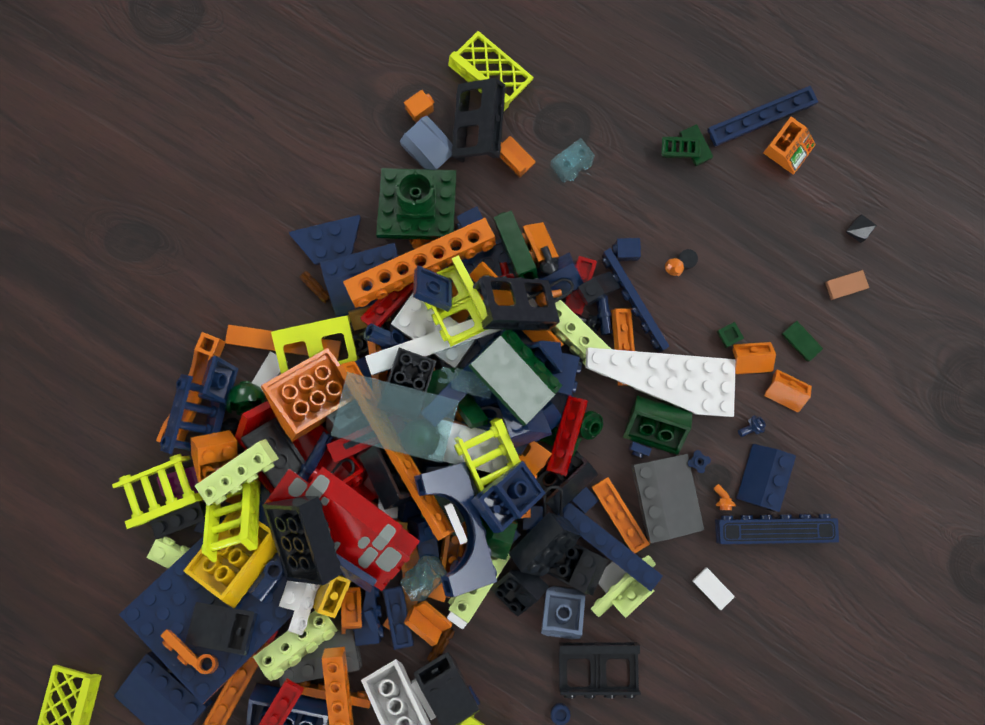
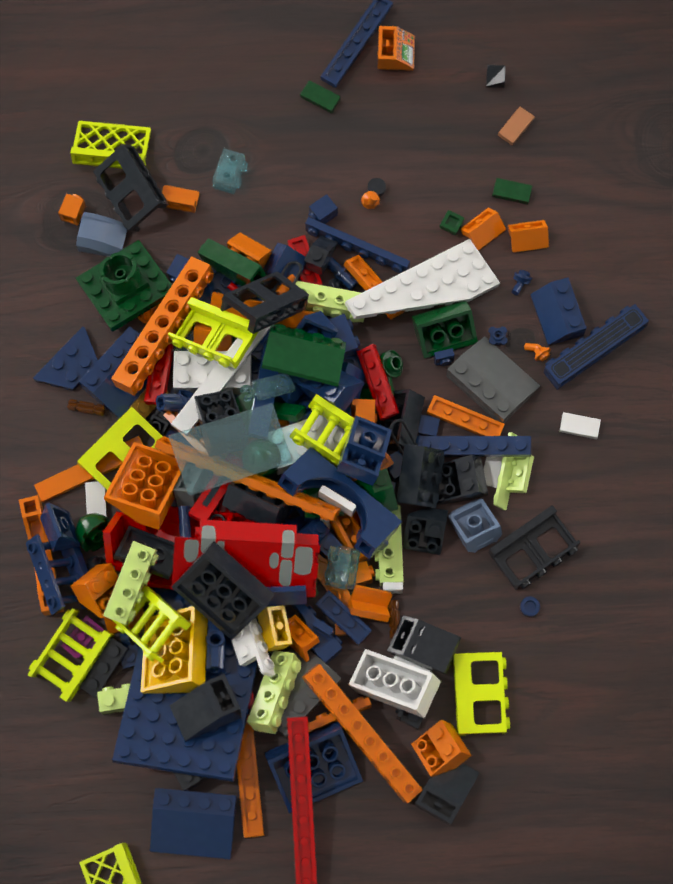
camera: 35 degrees left, 10 degrees down
(186, 655) = (194, 745): orange plate -> none
(432, 288) = (189, 334): dark blue tile -> none
(550, 264) = (269, 258): black plate -> none
(681, 154) = (294, 107): dark green slope -> none

